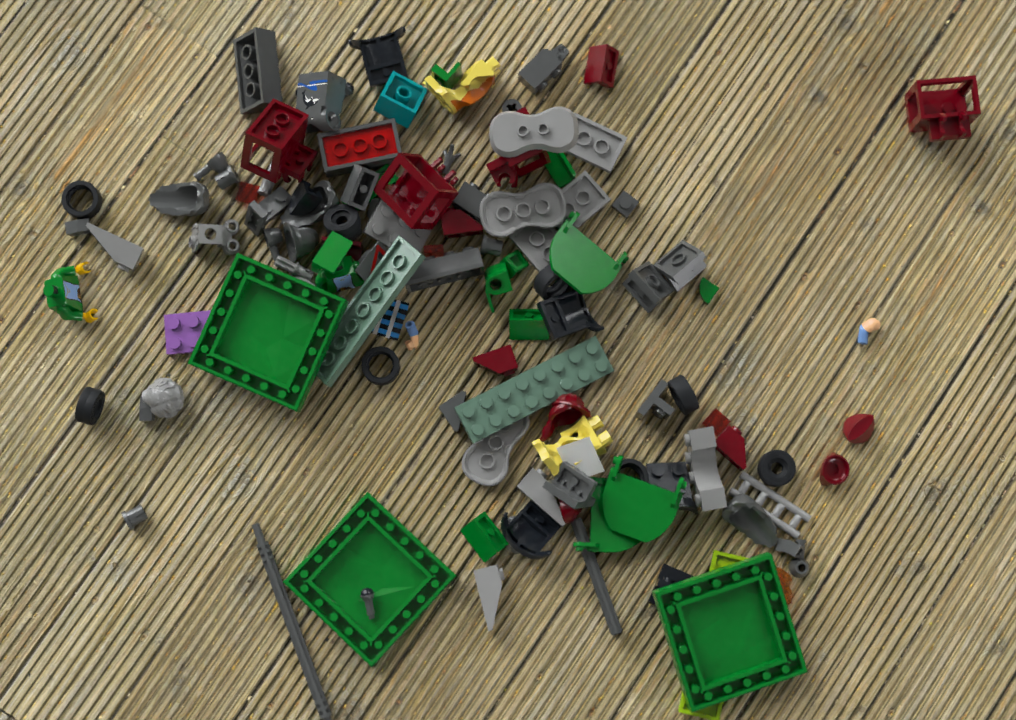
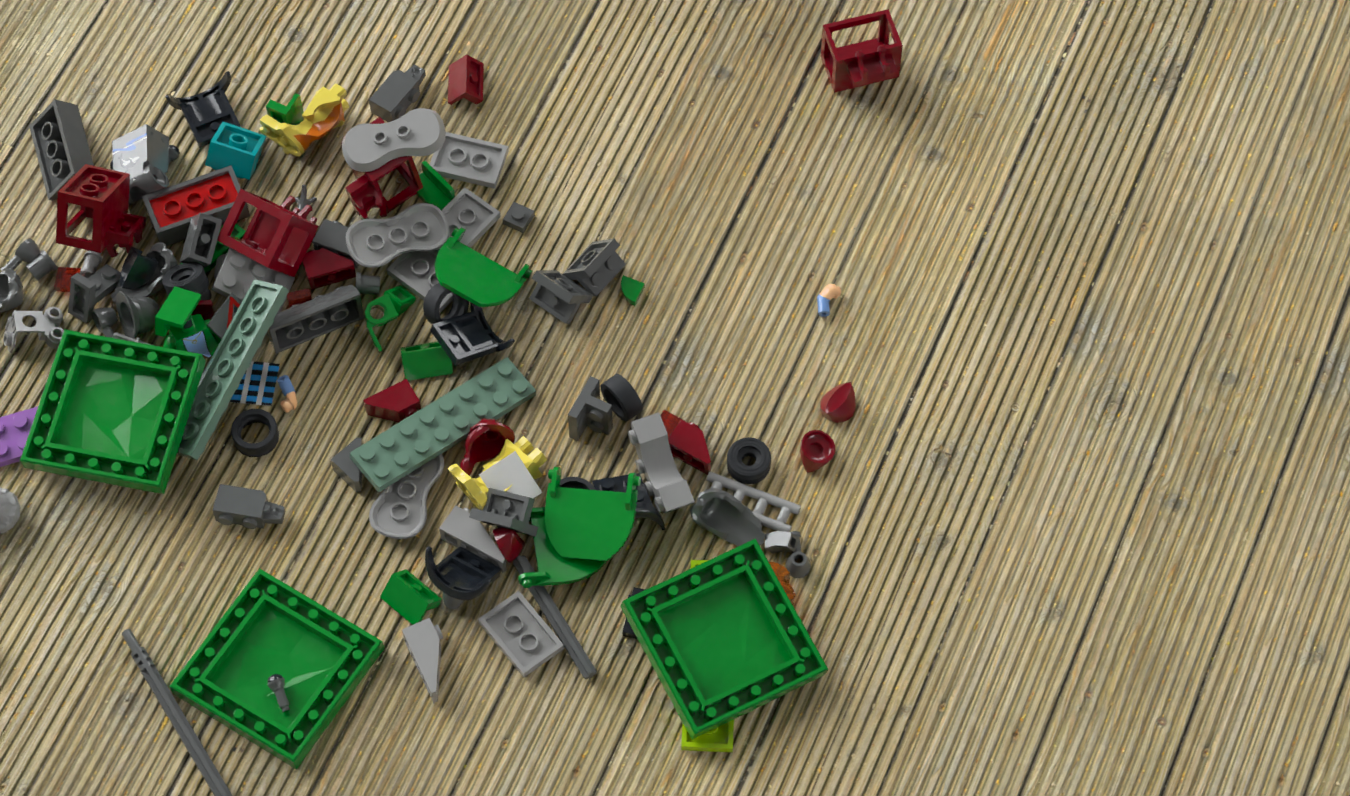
camera: 10 degrees left, 20 degrees down
(364, 432) = (246, 507): none -> dark grey hinge
(567, 587) = (521, 634): none -> light grey plate

